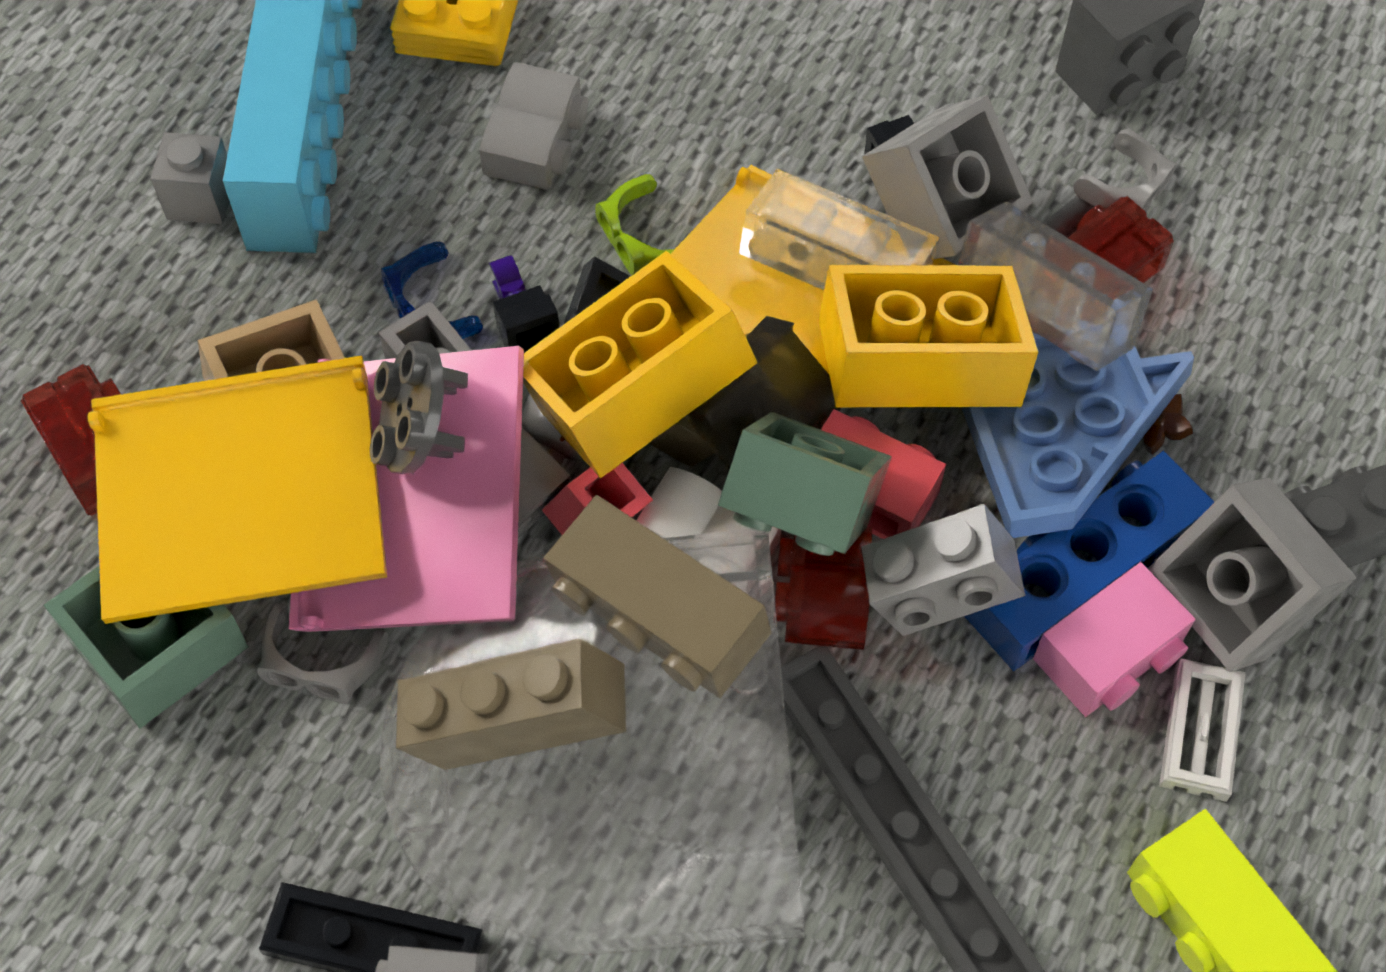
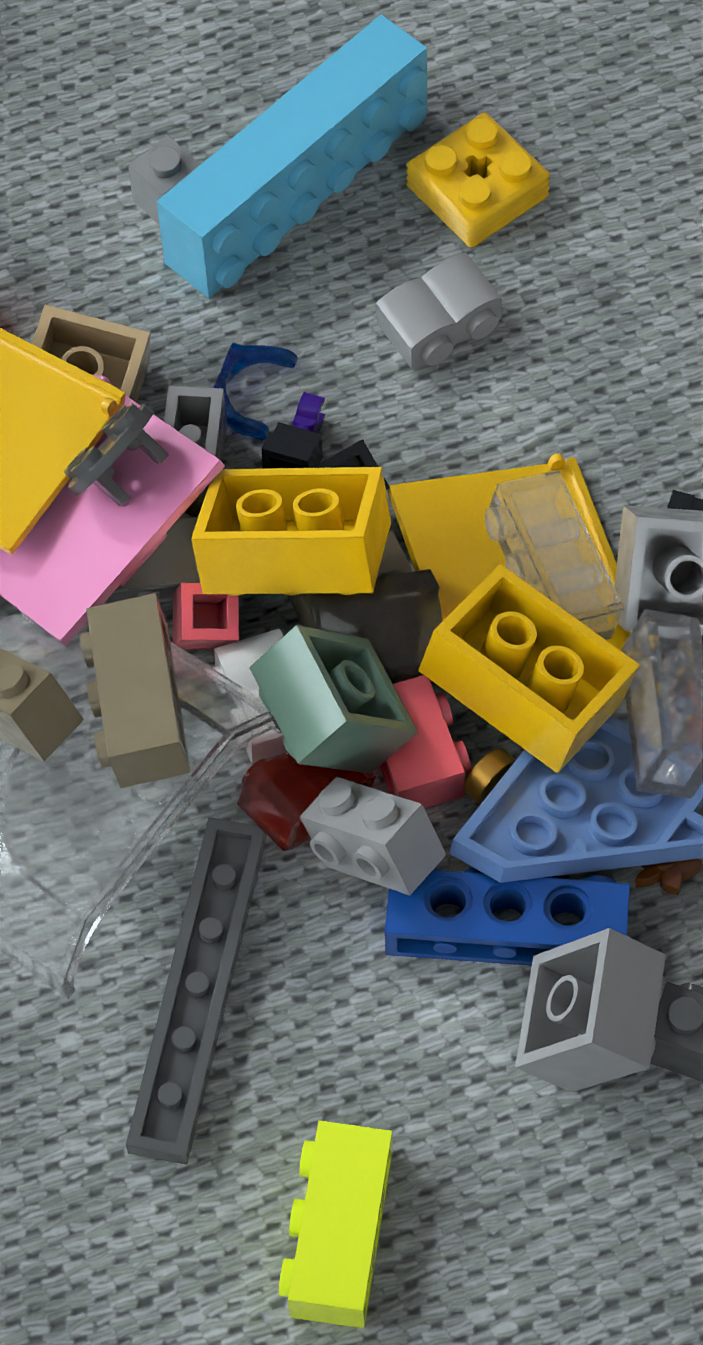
camera: 45 degrees right, 0 degrees up
(630, 250) = (434, 419): lime cap -> none
(956, 455) = (487, 774): none -> pearl gold tile
(1115, 640) = (463, 985): bright pink brick -> none
(1194, 779) = (482, 1114): white tile -> none

